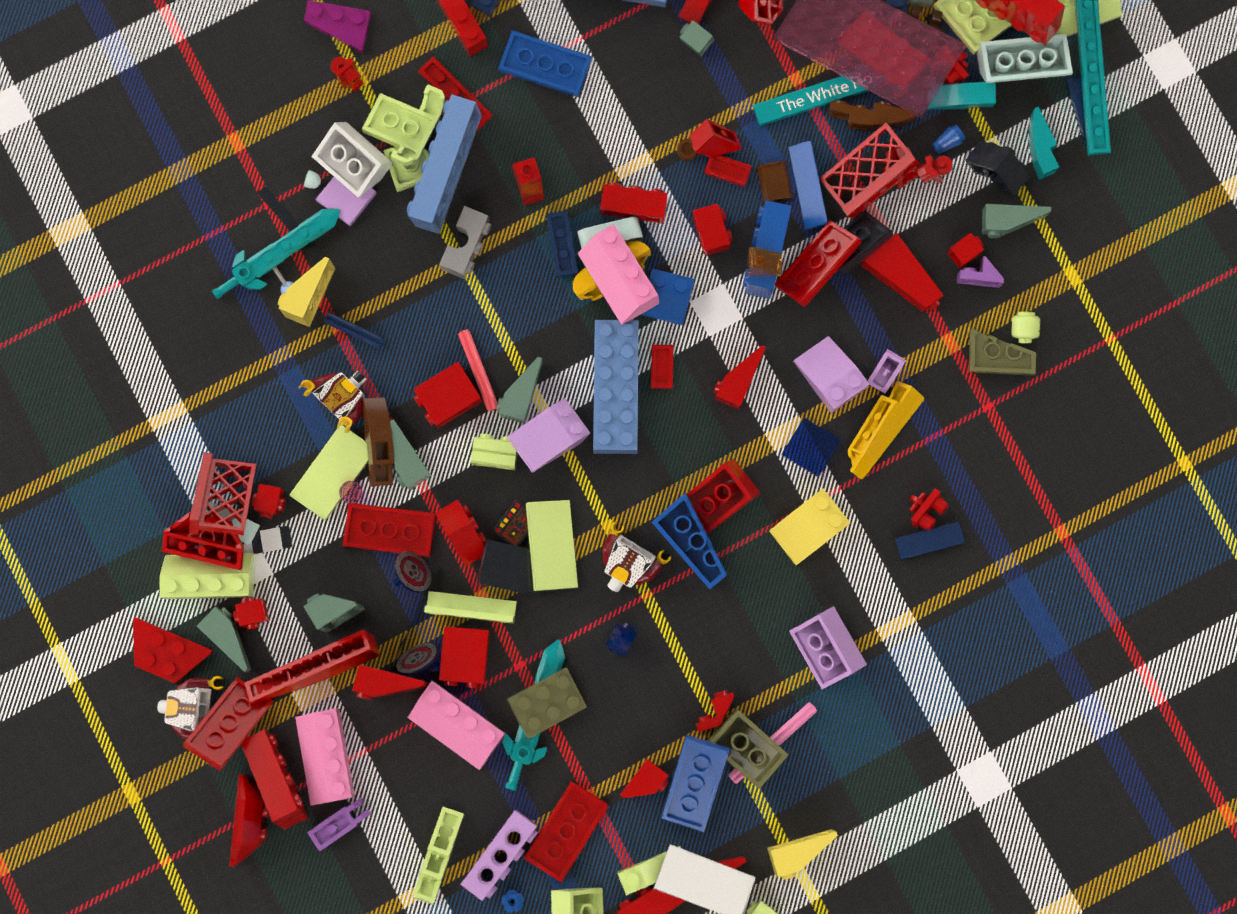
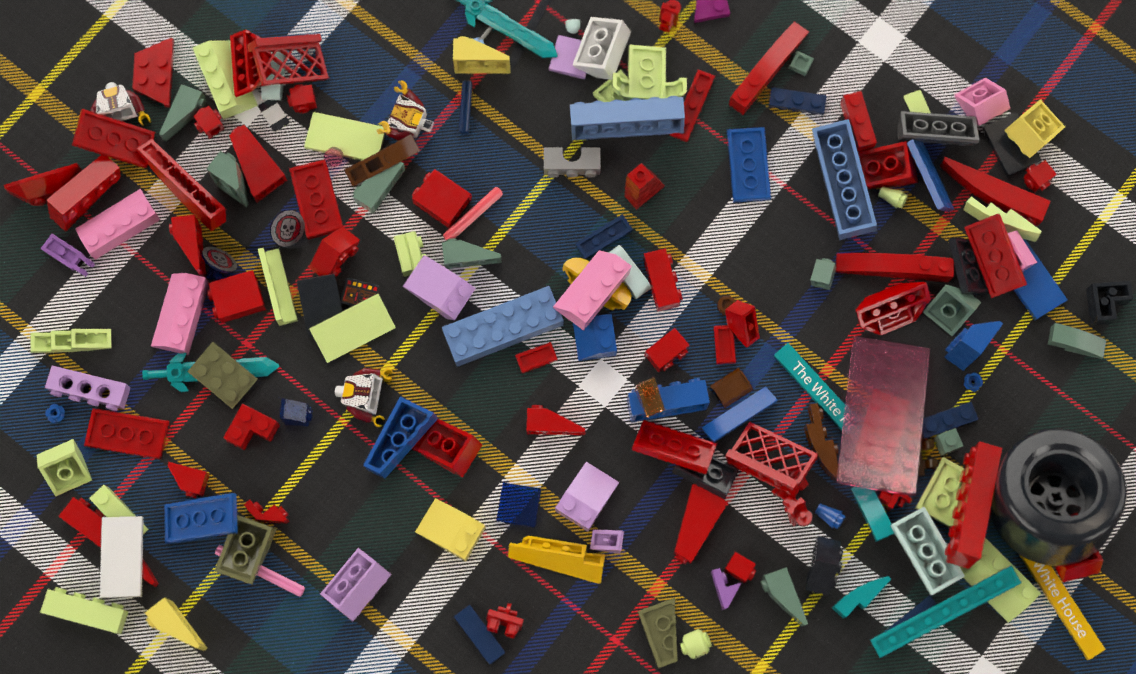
camera: 65 degrees right, 5 degrees down
(331, 577) = (258, 167): none -> red slope
(610, 693) = (248, 423): none -> red brick

